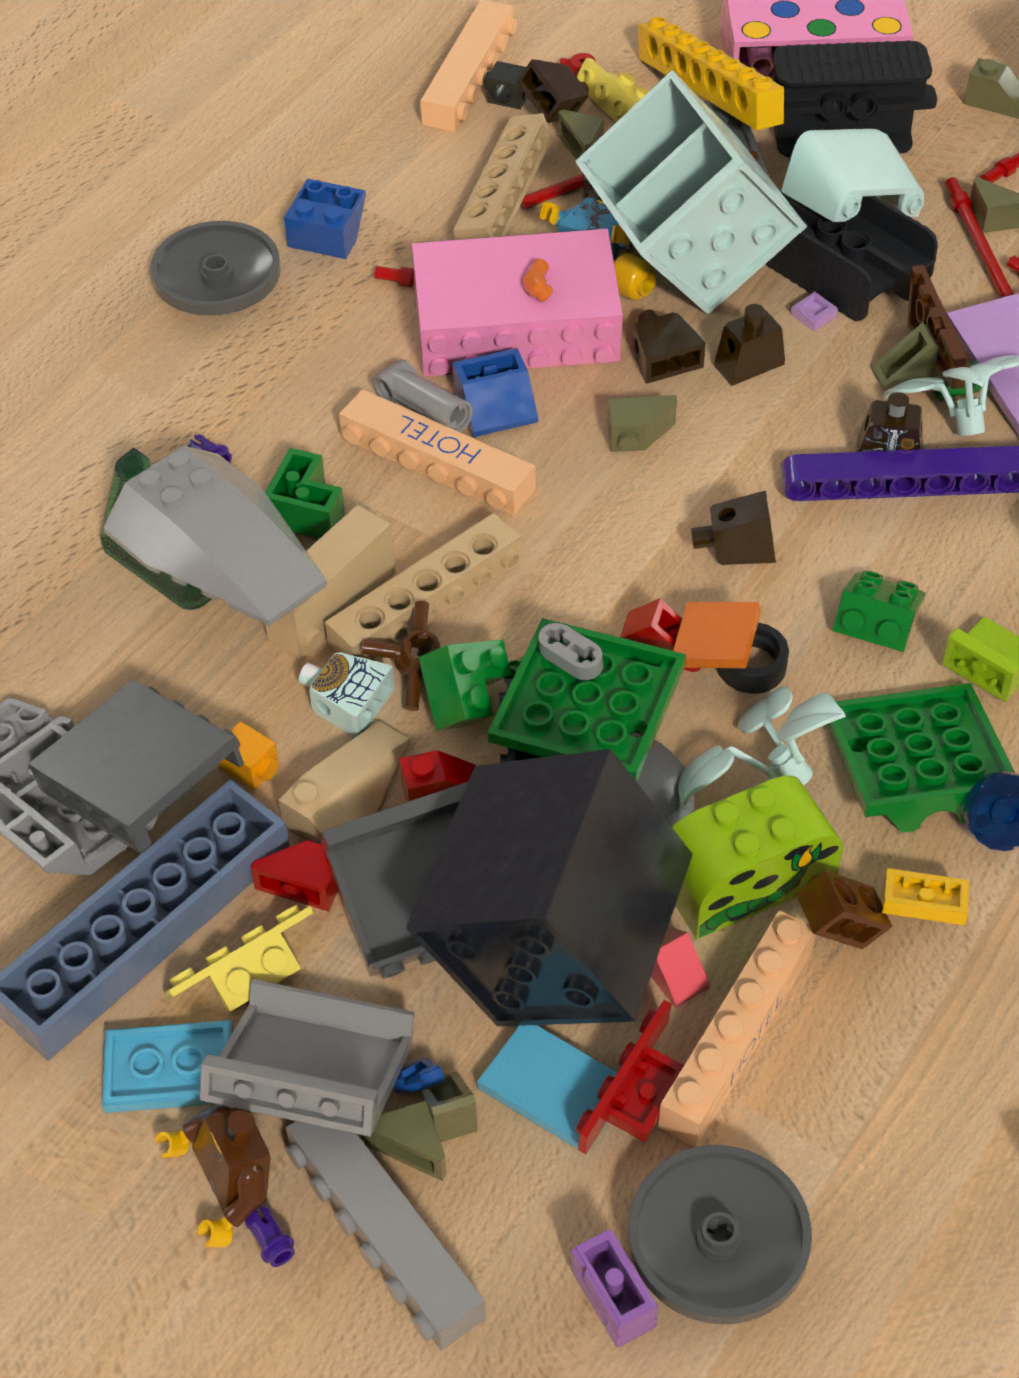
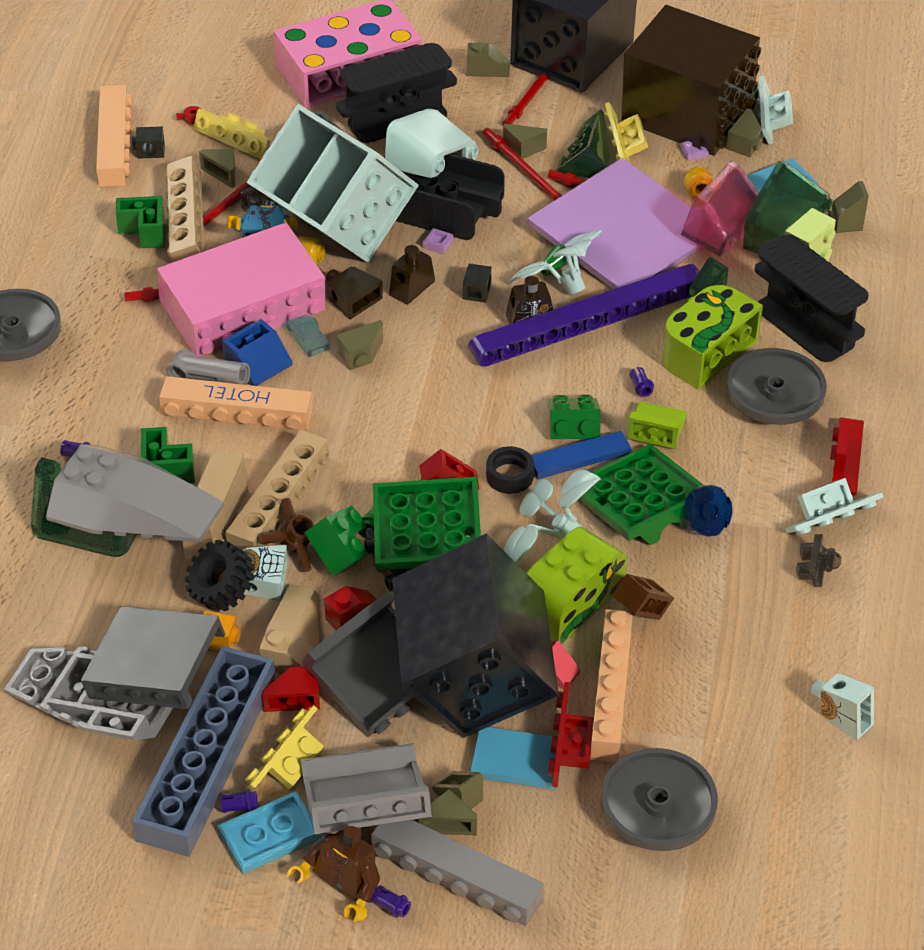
camera: 25 degrees left, 5 degrees down
(161, 1009) = (239, 801): none -> dark purple pin
(283, 679) = (207, 570): none -> black tyre
(325, 218) = (71, 269): blue slope -> none
(418, 1076) = (436, 778): blue tile -> none
(445, 176) = (142, 216): none -> green brick
(535, 282) = (257, 270): orange arm -> none
(552, 88) = (186, 136): dark brown torso -> none
(573, 648) = (404, 497): light grey beam -> none
(578, 389) = (307, 334): none -> clear light blue tile
(614, 1288) = (614, 850): medium lavender brick -> none
(712, 73) = (283, 95): yellow brick -> none
(717, 634) = (486, 459): orange tile -> none
(739, 531) = (465, 394): dark brown torso -> none
(836, 382) = (477, 282): none -> pearl dark grey brick
(863, 667) = (580, 454): none -> blue tile
(909, 359) = (517, 254): olive slope -> none
(925, 896) = (685, 574): yellow bracket -> none
(927, 308) = (525, 230): reddish brown wing -> none
(1001, 595) = (643, 385): none -> dark purple pin

